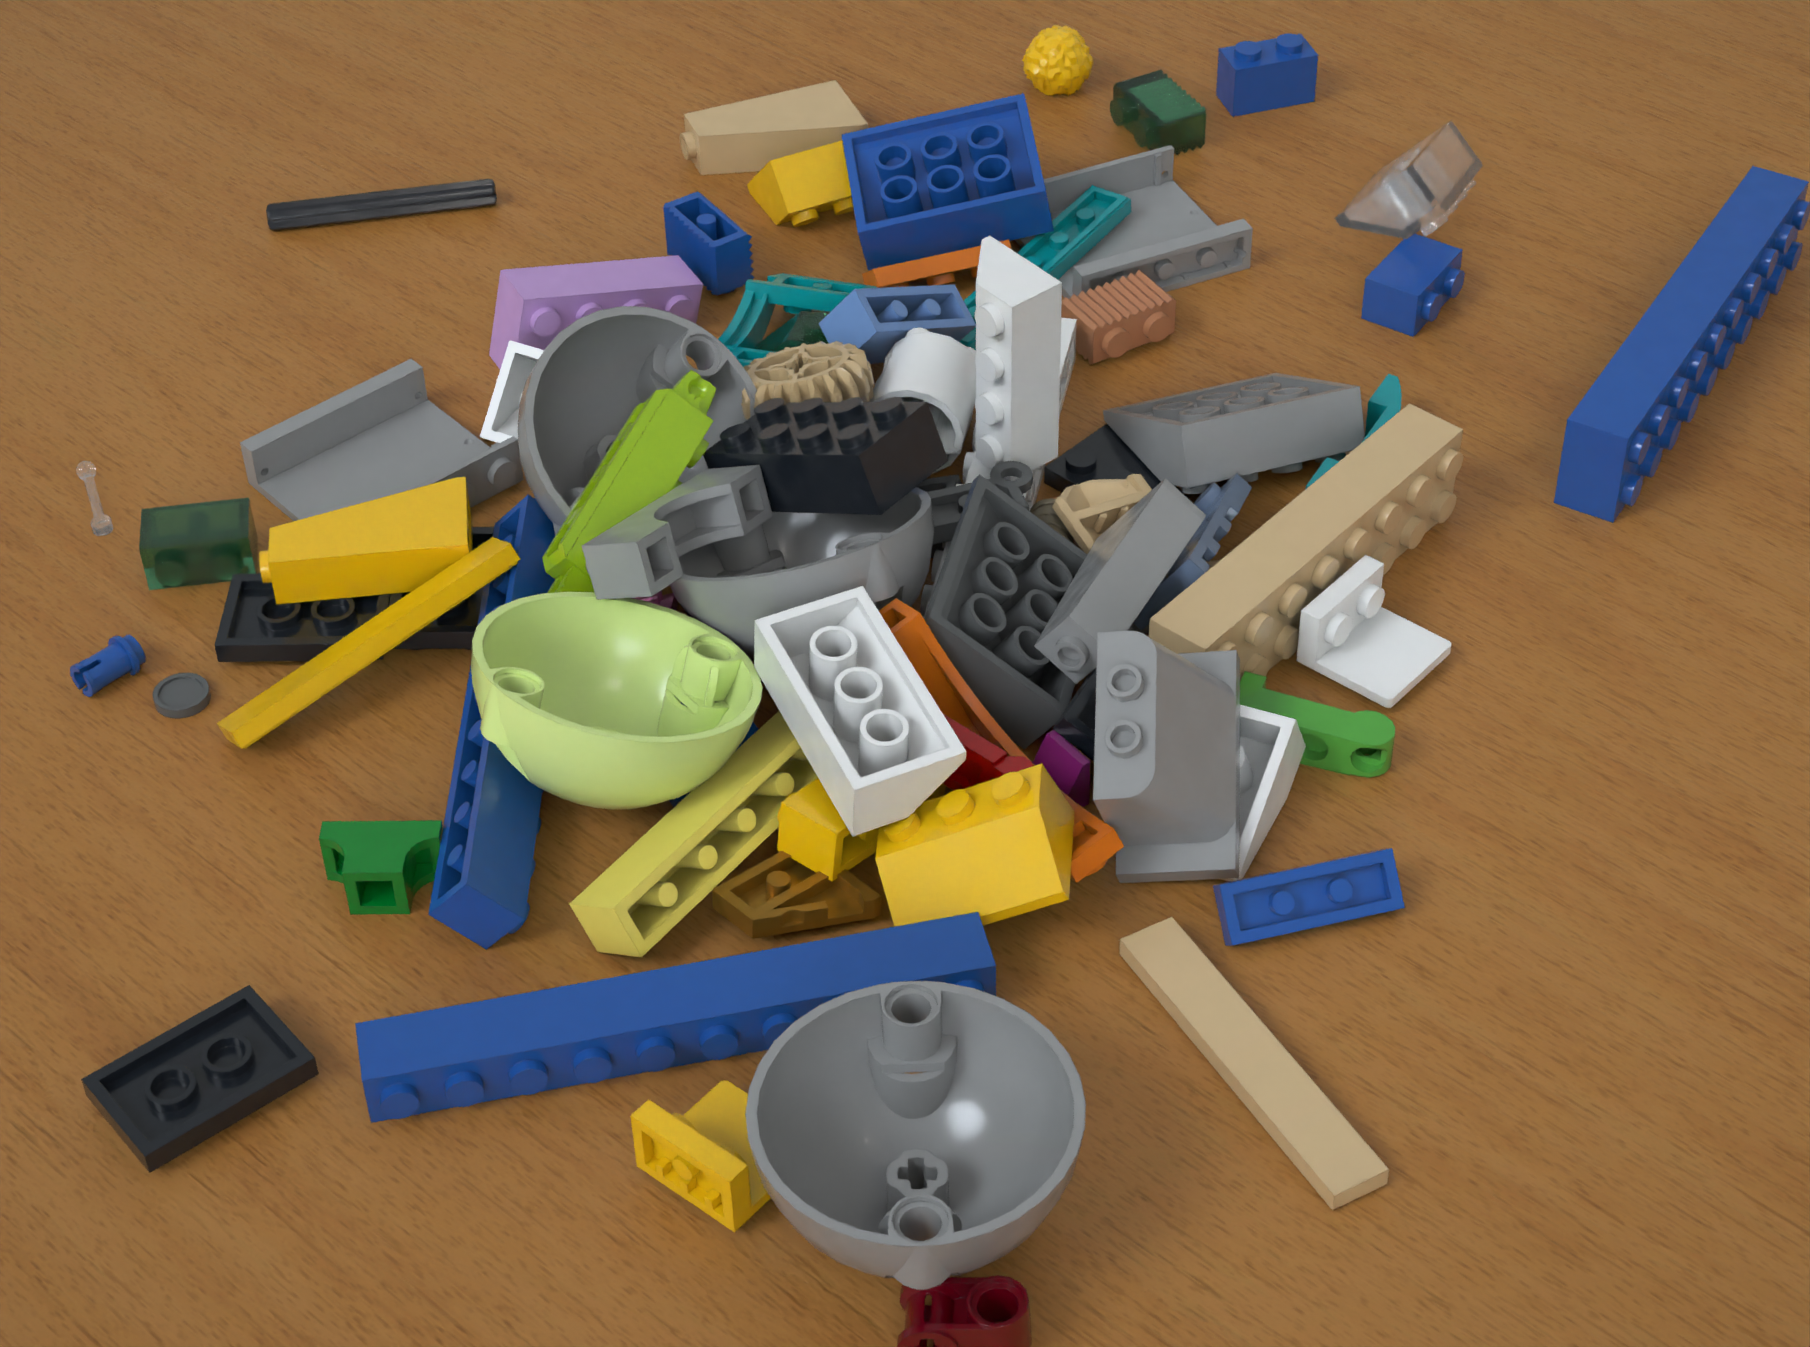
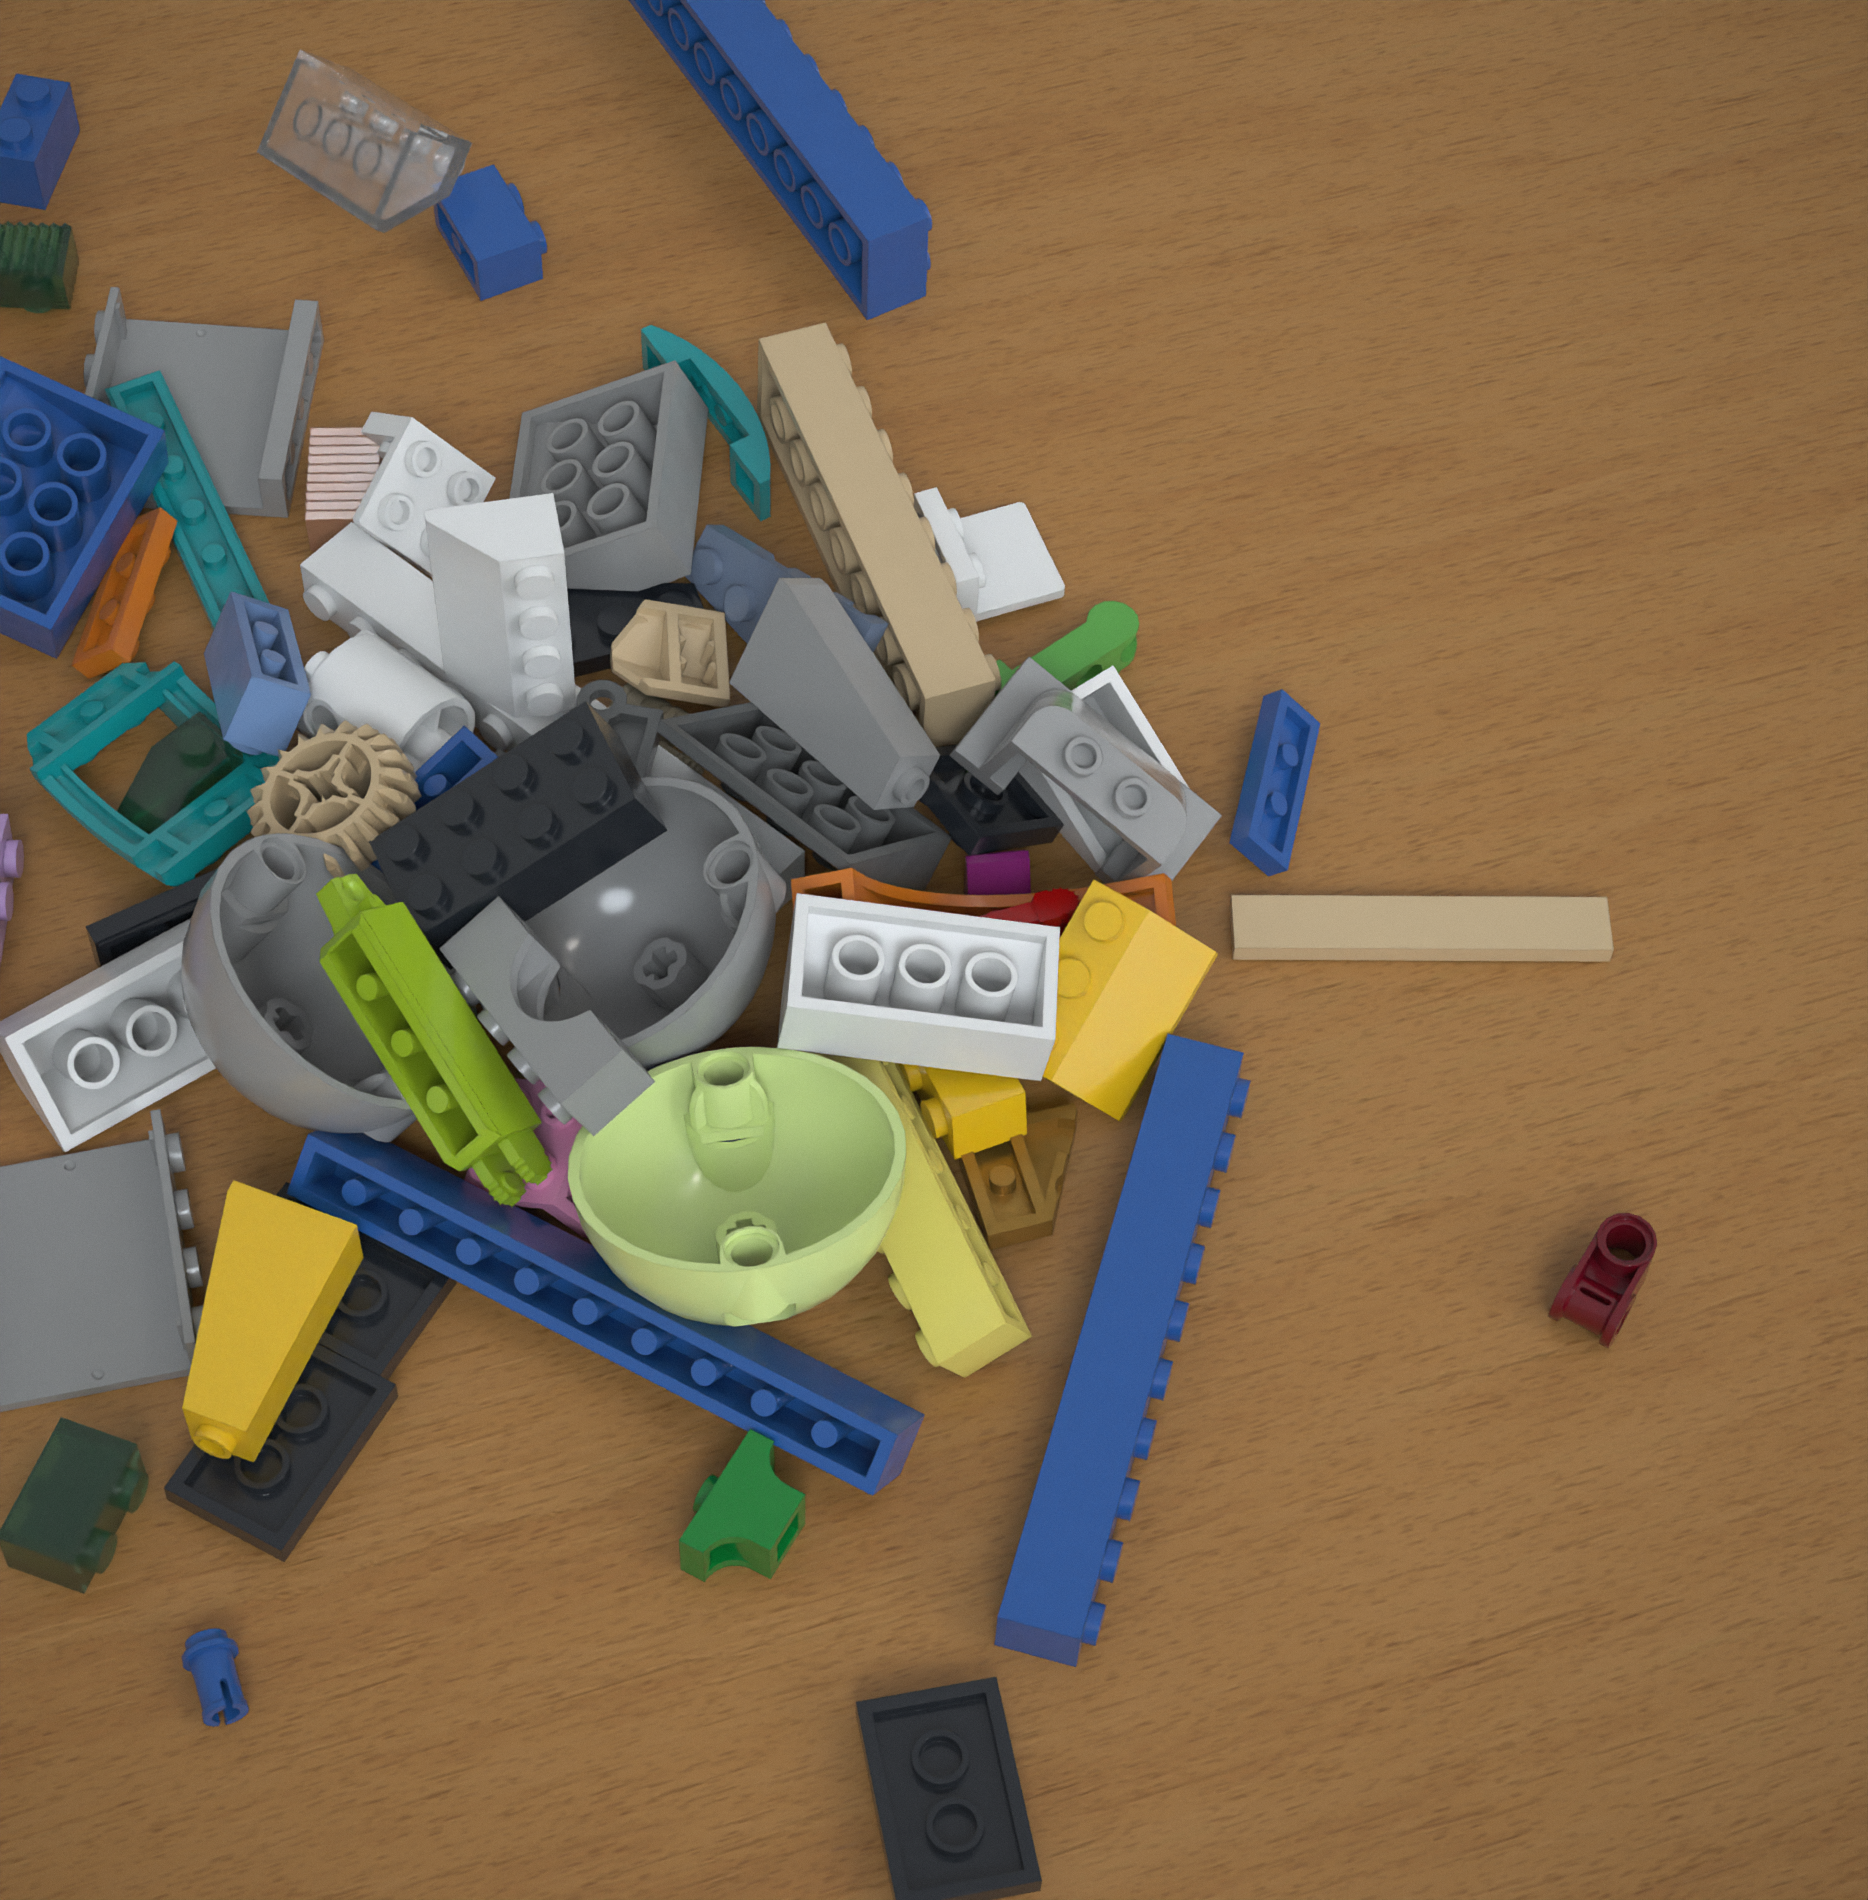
camera: 65 degrees left, 15 degrees up
(181, 695) = (309, 1621): dark grey piece -> none
(368, 643) = (413, 1392): yellow tile -> none
(703, 1154) = (1312, 1376): yellow bracket -> none
(923, 1166) = (1475, 1156): light grey piece -> none
(1126, 336) = (414, 476): none -> white bracket

